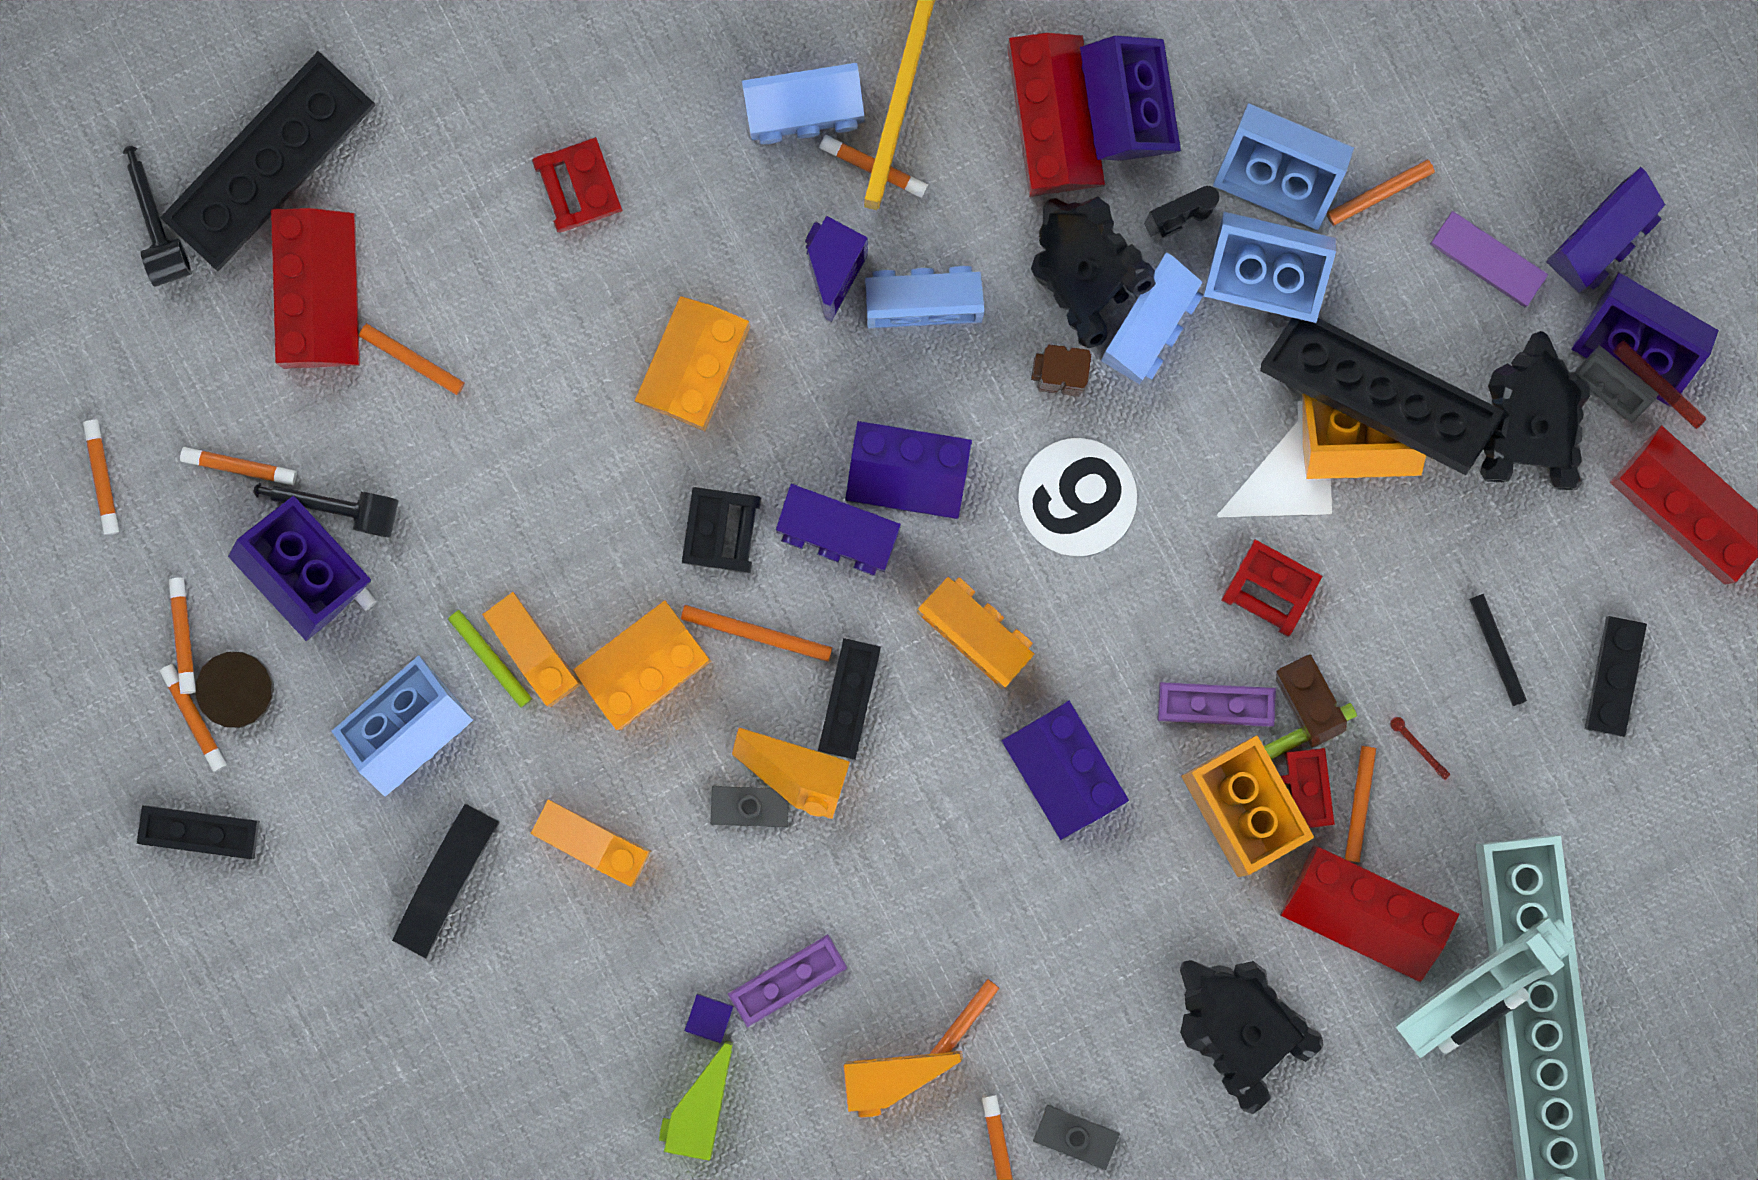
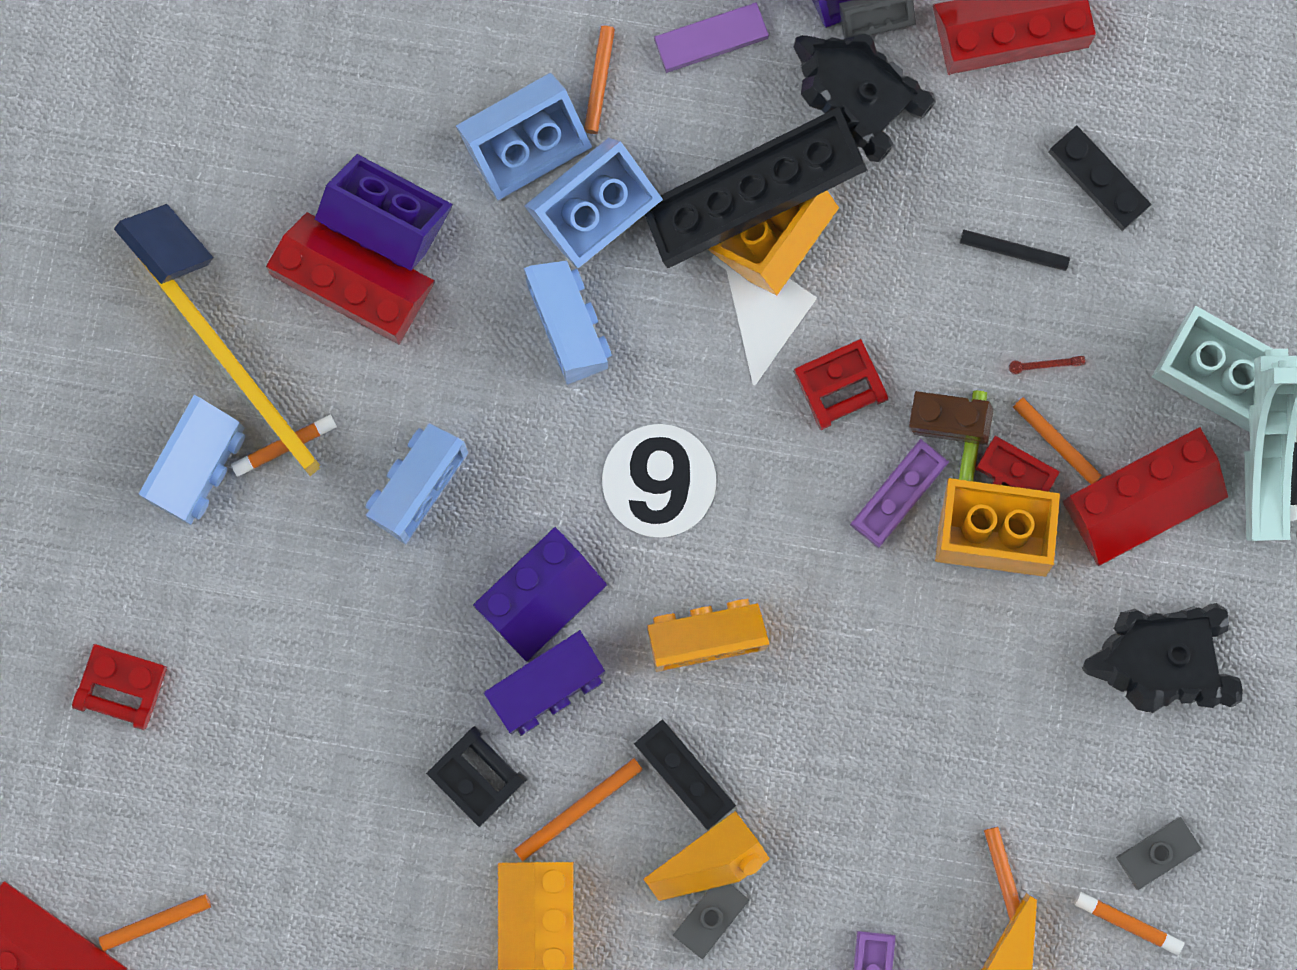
camera: 55 degrees left, 5 degrees down
(693, 362) = (328, 700): light orange slope -> none
(834, 260) = (334, 529): dark purple slope -> none
(1062, 370) = (553, 417): reddish brown brick -> none
(1065, 770) = (865, 647): dark purple slope -> none
(1087, 264) = (486, 336): black shield -> none
(1172, 215) = (498, 245): black plate -> none

